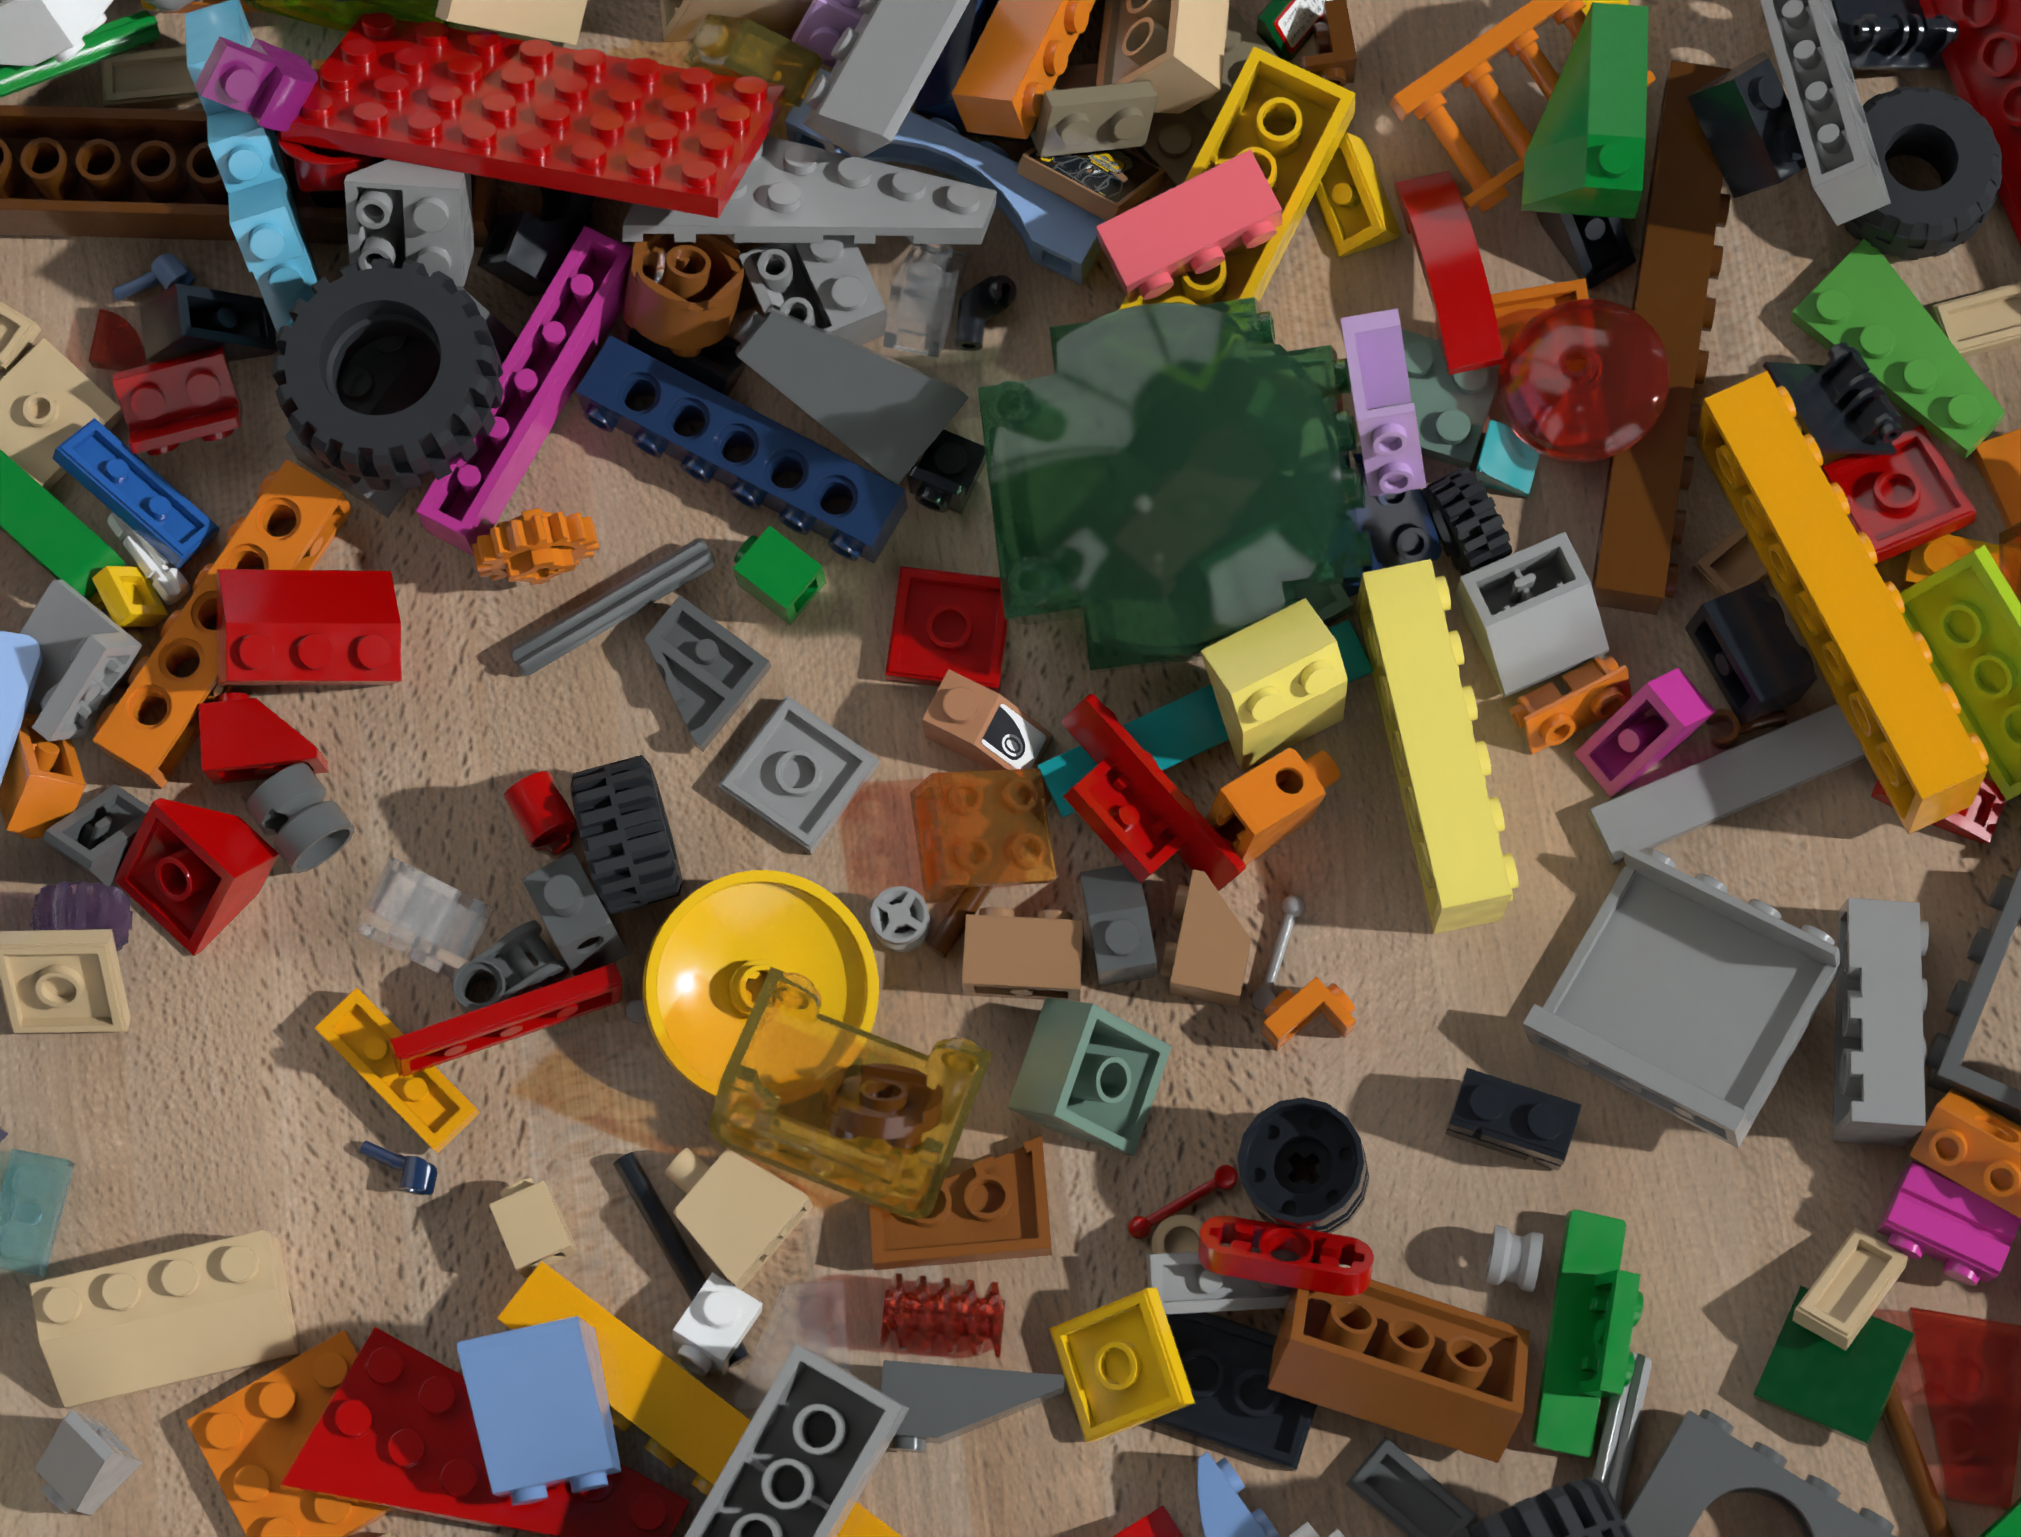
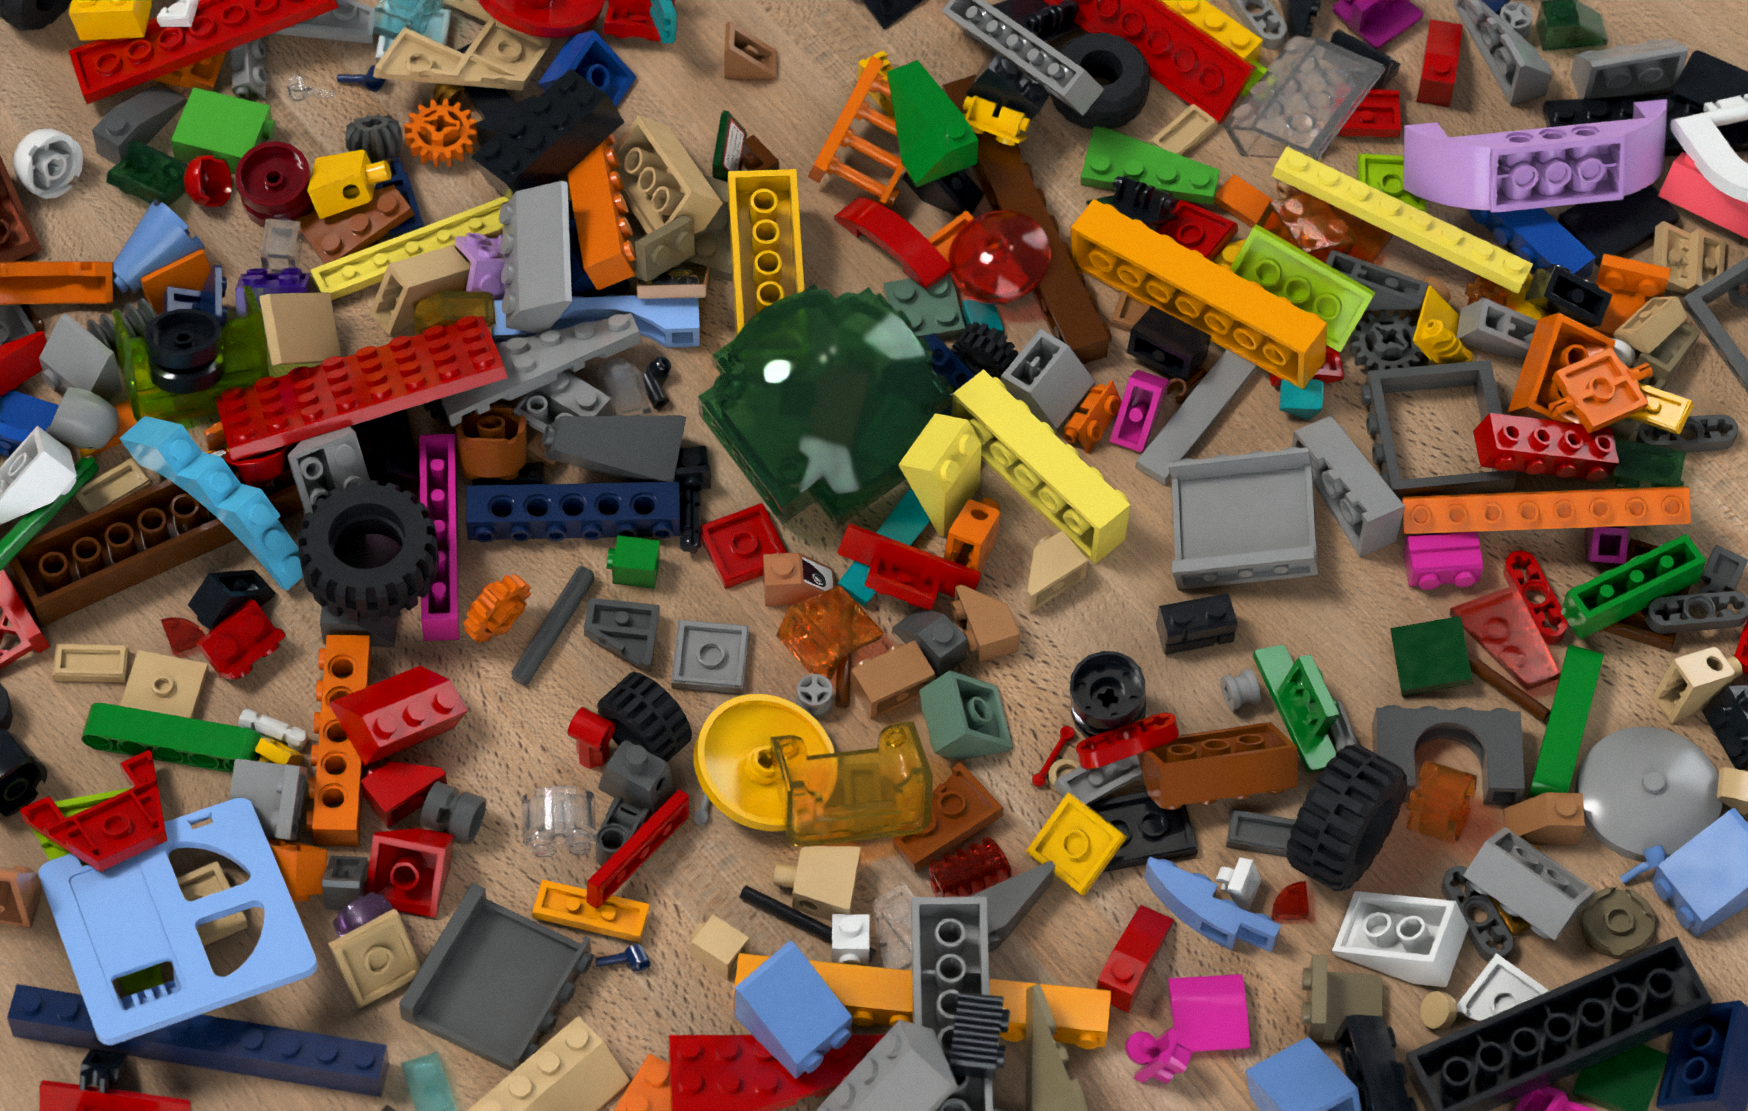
camera: 40 degrees left, 15 degrees down
(136, 493) = (247, 699): blue tile -> none
(165, 270) = (186, 582): medium blue hand -> none
(209, 1100) = (494, 981): none -> dark grey panel
(257, 81) = (207, 432): magenta brick -> none
(882, 1104) = (873, 771): reddish brown plate -> none
(894, 553) = (690, 521): none -> black axle
(1190, 227) = (753, 272): coral brick -> none
(1292, 907) = (1028, 638): light grey hinge -> none
(1293, 1011) = (1060, 620): orange bracket -> none
(1355, 200) = (821, 237): yellow slope -> none
(1357, 914) = (1054, 569): none -> tan slope
(1380, 380) = (925, 314): lavender panel -> none
(1715, 184) = (1005, 127): none -> yellow hinge
(1850, 1288) = (1415, 613): tan tile -> none
(1896, 851) = (1300, 402): none -> teal slope

